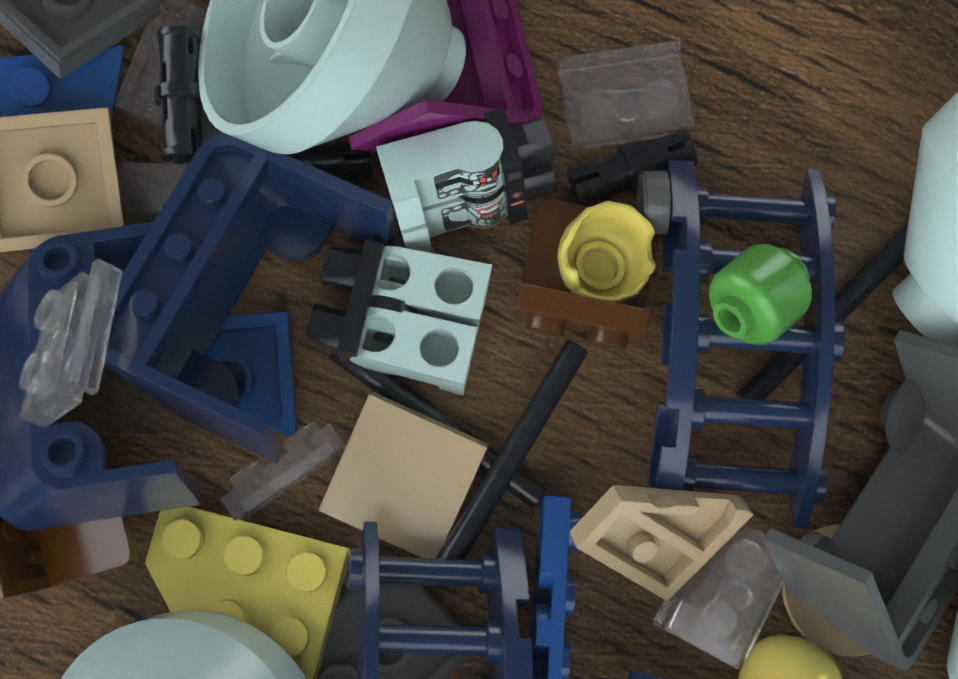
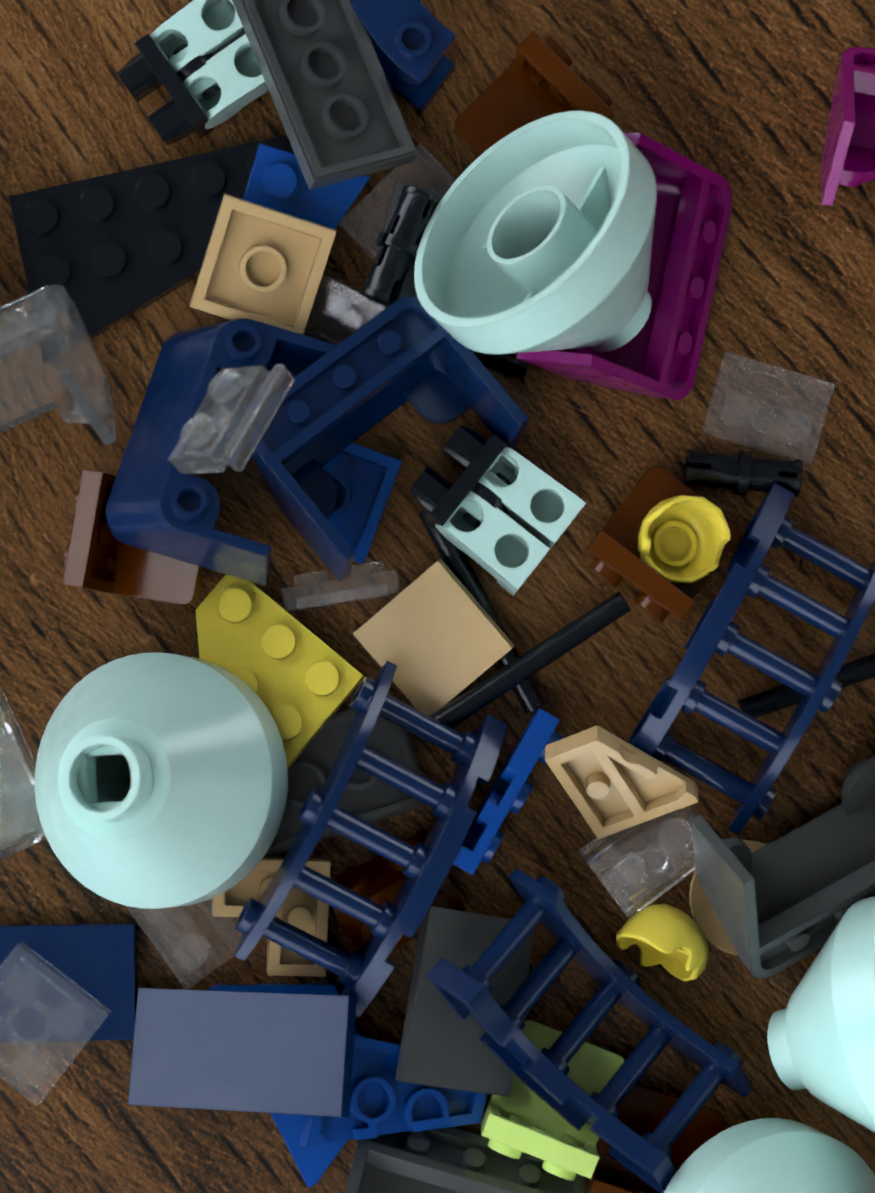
camera: 35 degrees right, 5 degrees up
(467, 176) = (599, 422): hips -> none
(654, 199) = (744, 511): dark grey tile -> none
(762, 292) = (785, 630): bright green head -> none

